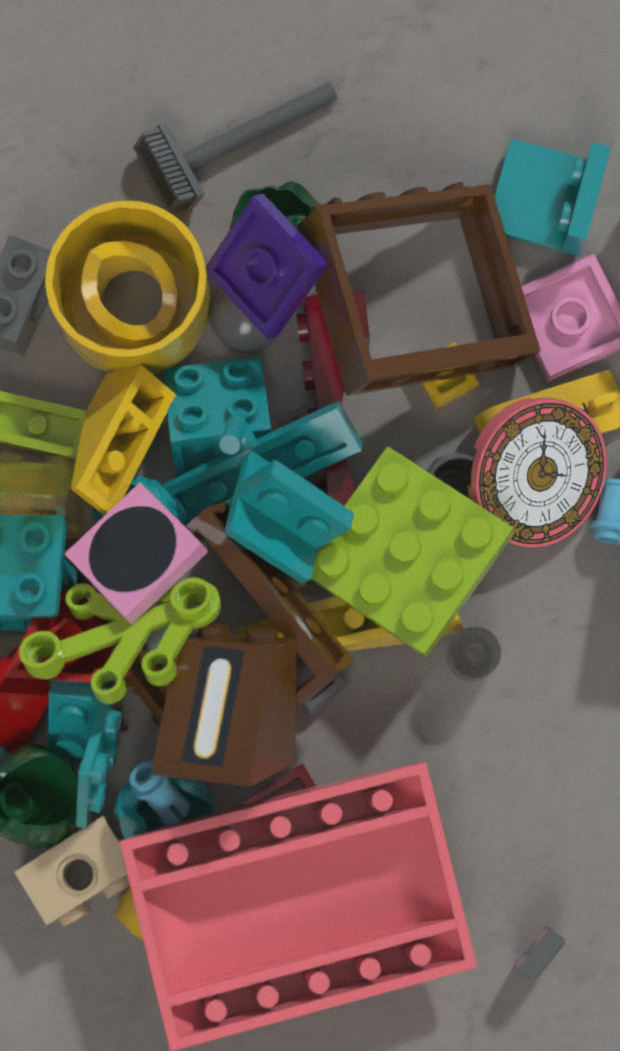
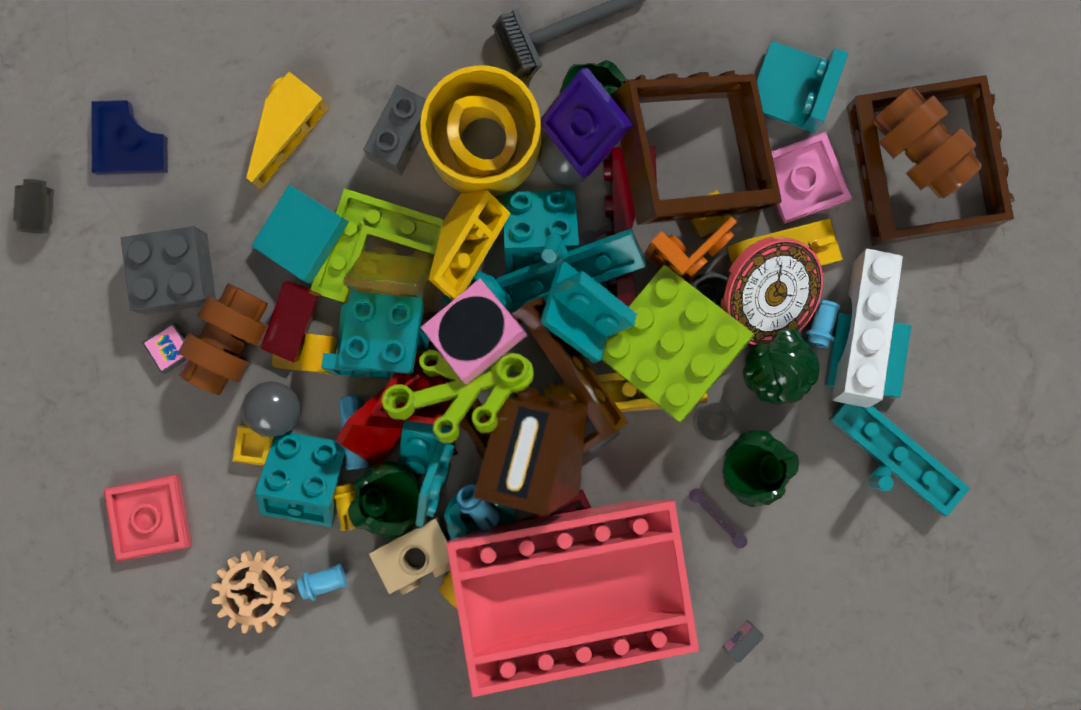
camera: 10 degrees right, 5 degrees up
(394, 426) = (670, 251): none -> orange bracket
(522, 815) = (738, 539): none -> clear purple hinge
(539, 712) = (758, 468): none -> dark green hair
(560, 575) = (781, 369): none -> dark green hair

